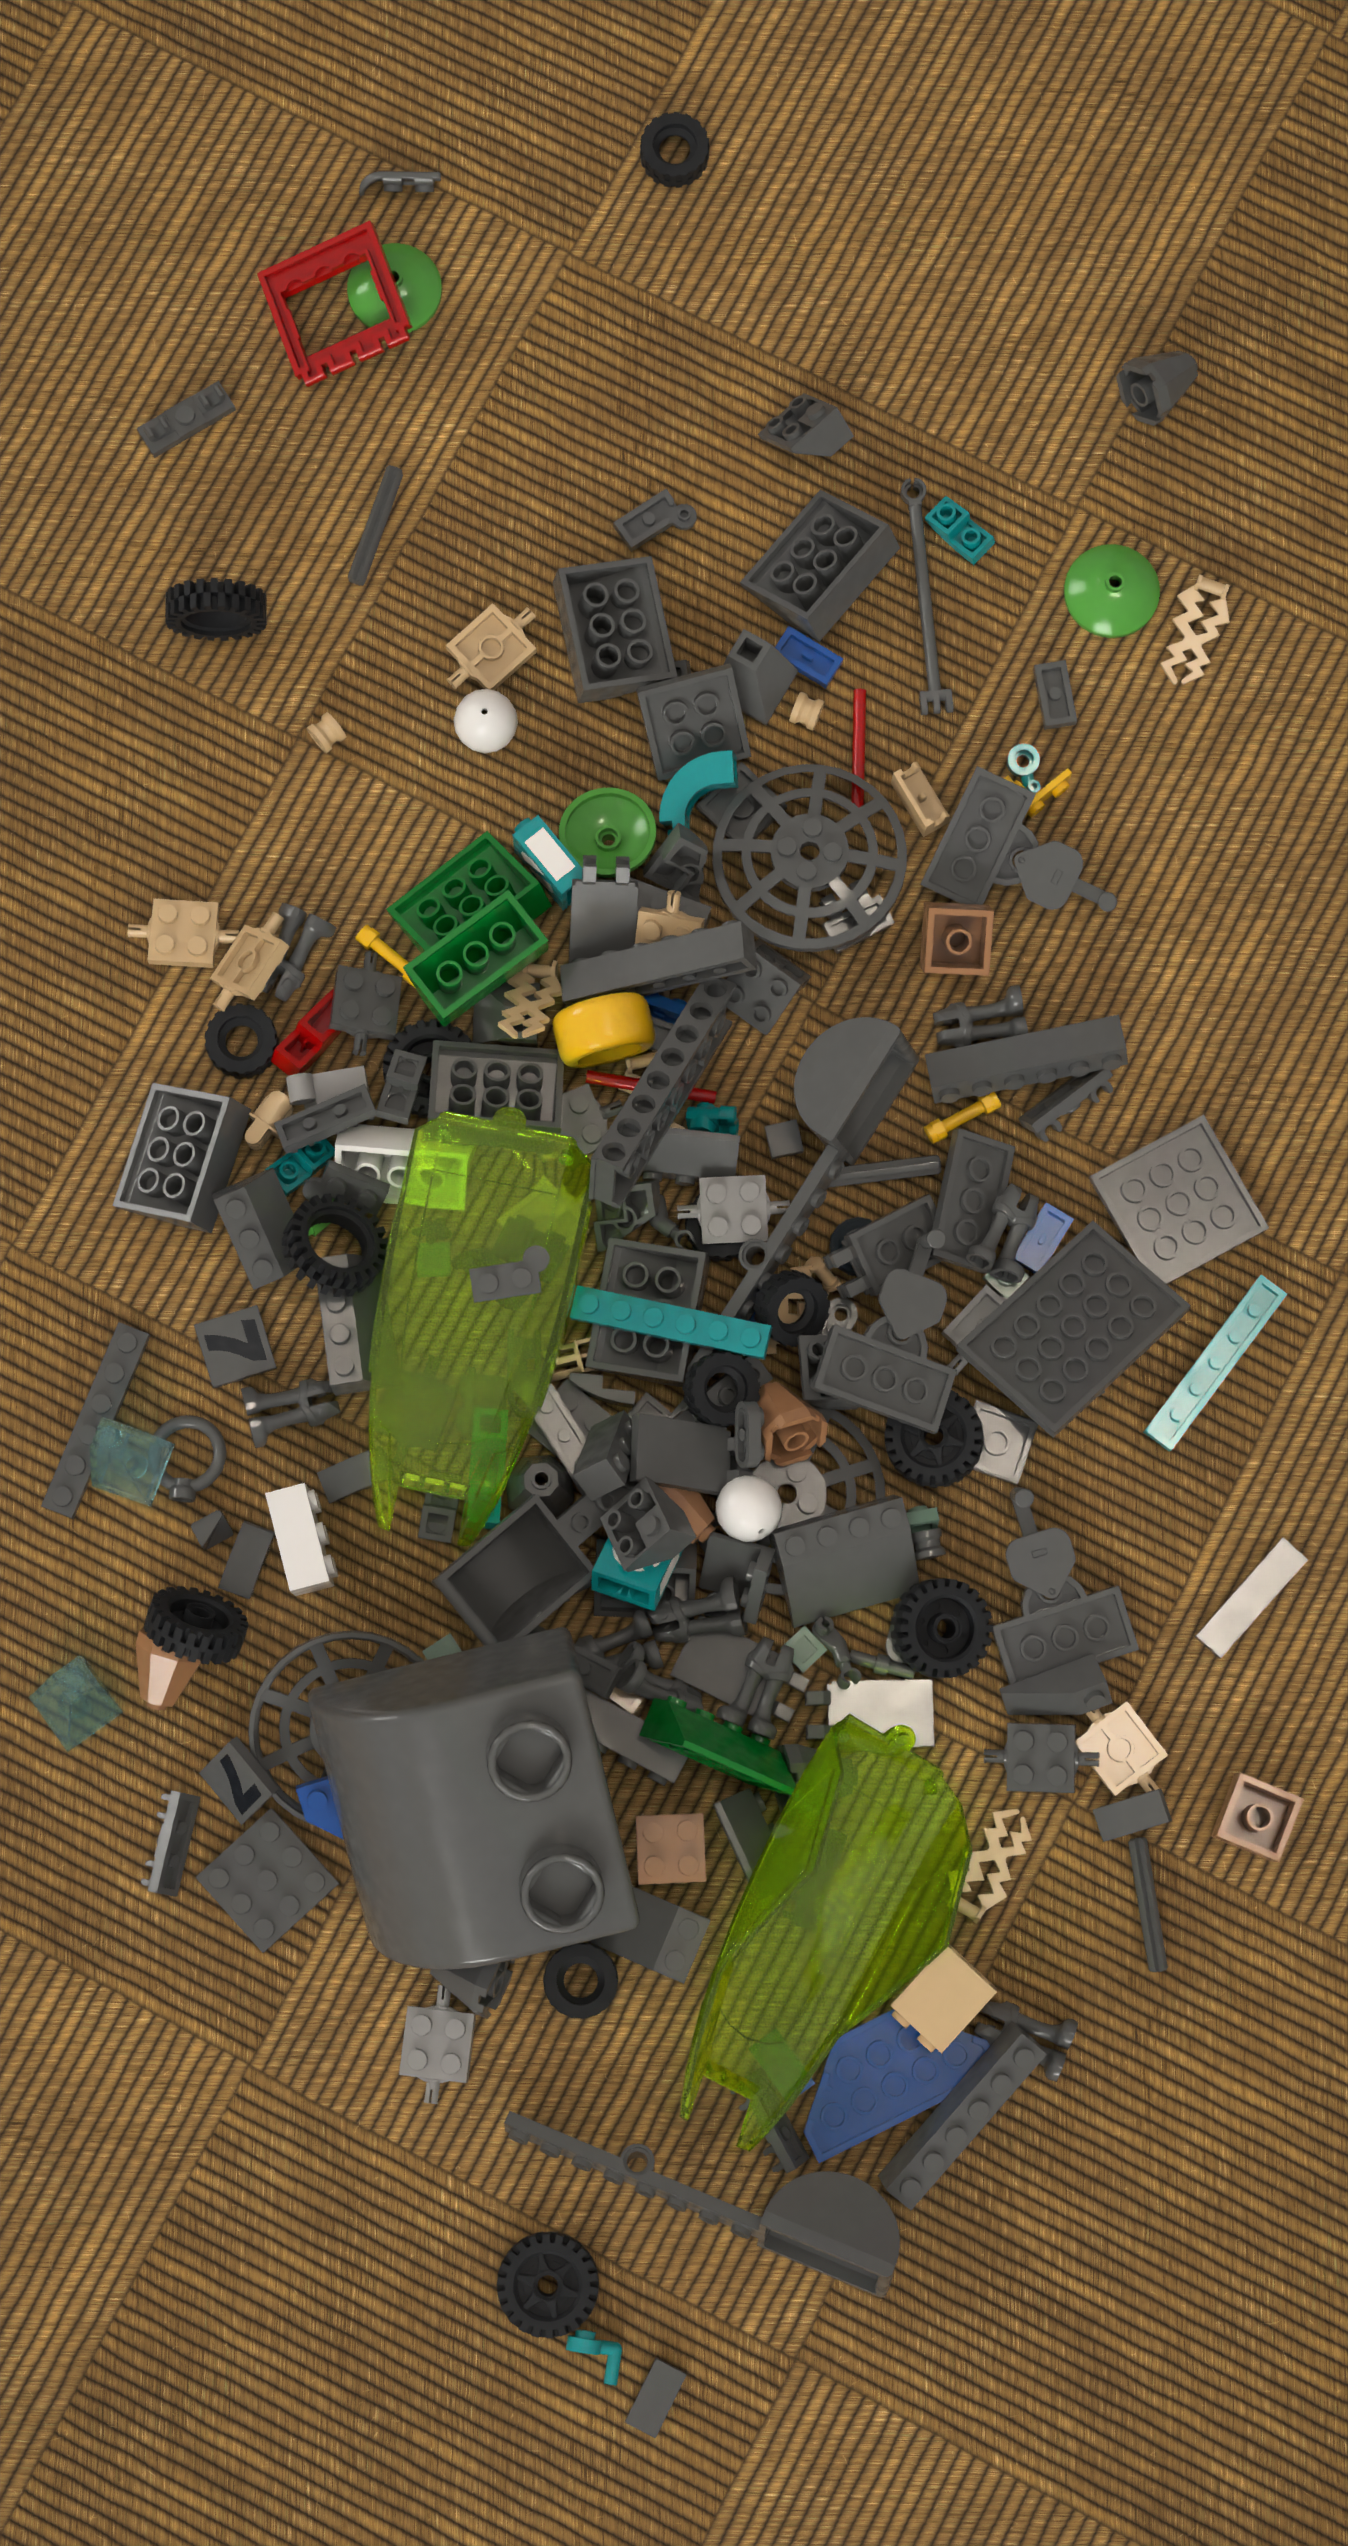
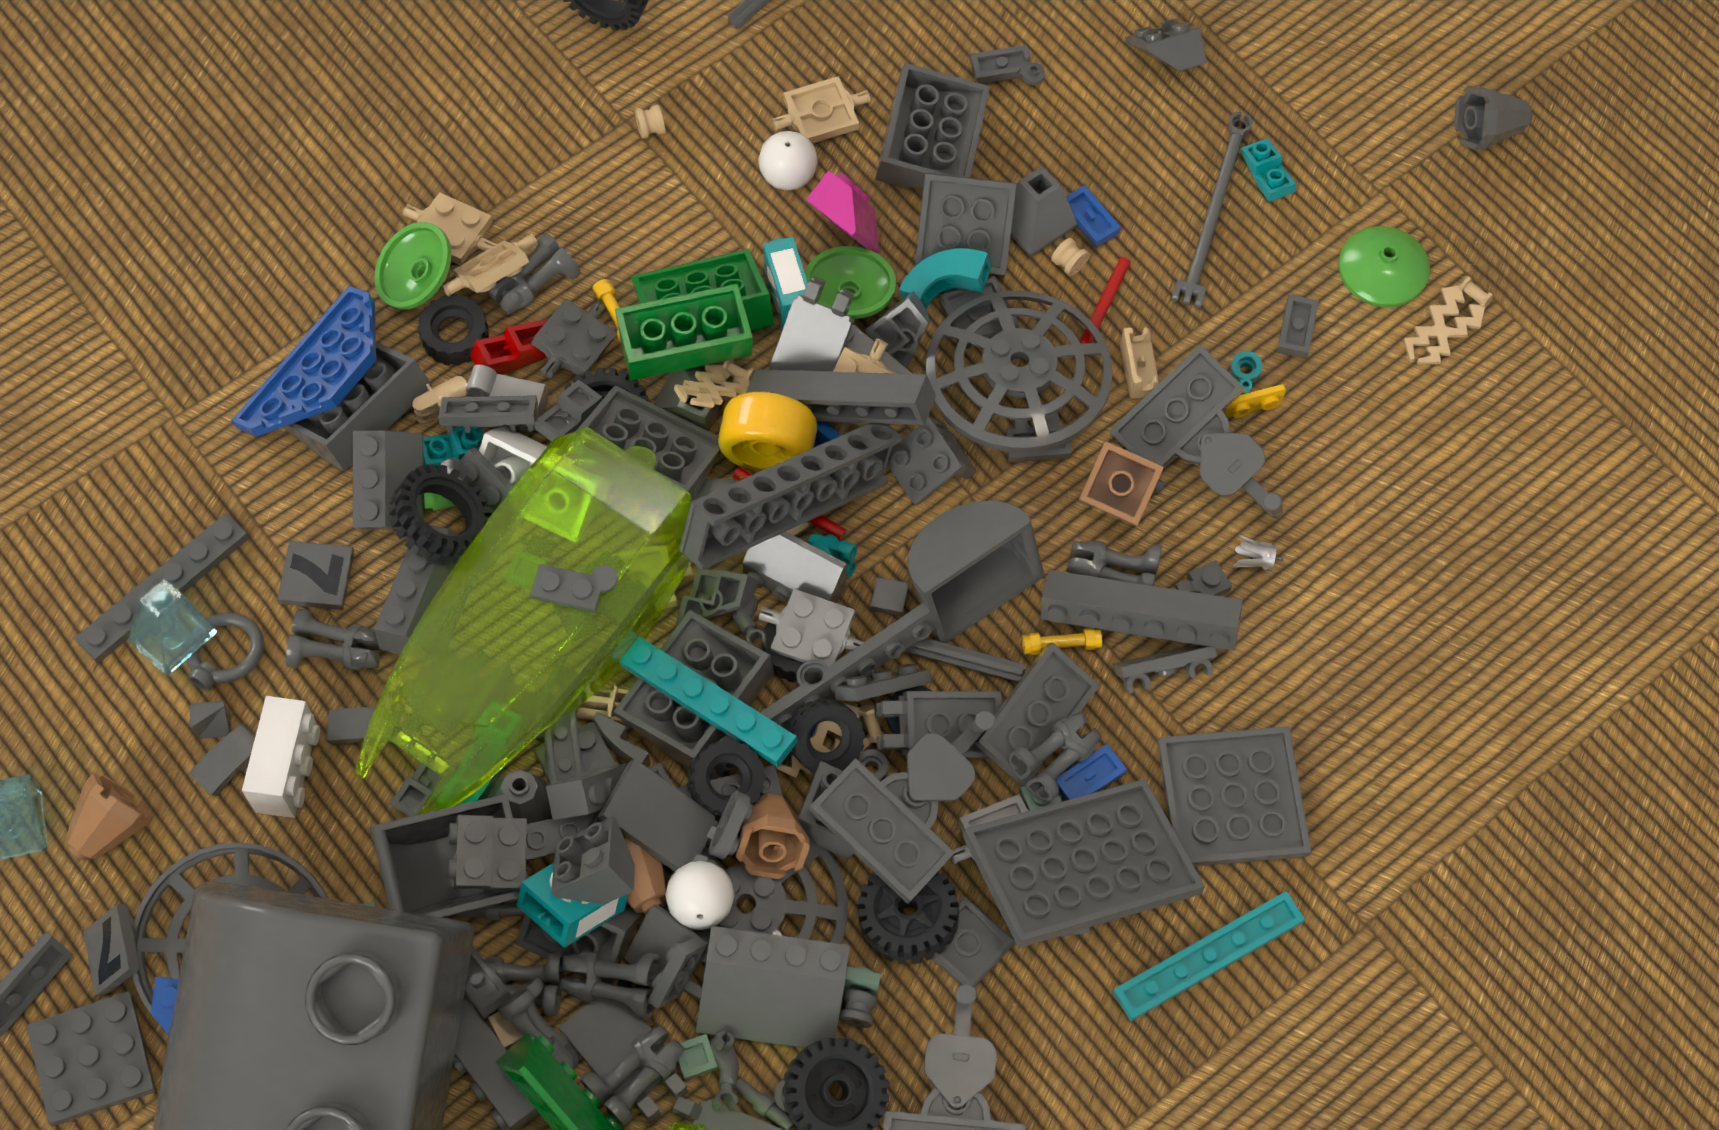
camera: 25 degrees right, 15 degrees down
(135, 1138) = (318, 369): none -> blue plate
(158, 993) = (413, 265): none -> bright green dish
(196, 1625) = (145, 789): black wheel -> none
(547, 1556) = (487, 852): none -> dark grey plate
(576, 762) = (846, 208): none -> dark pink slope
(821, 564) = (1135, 151): dark grey slope -> none
(821, 1235) = (882, 683): none -> dark grey plate
(1071, 1002) = (1206, 580): none -> dark grey plate
(1116, 949) = (1263, 552): none -> flat silver piece

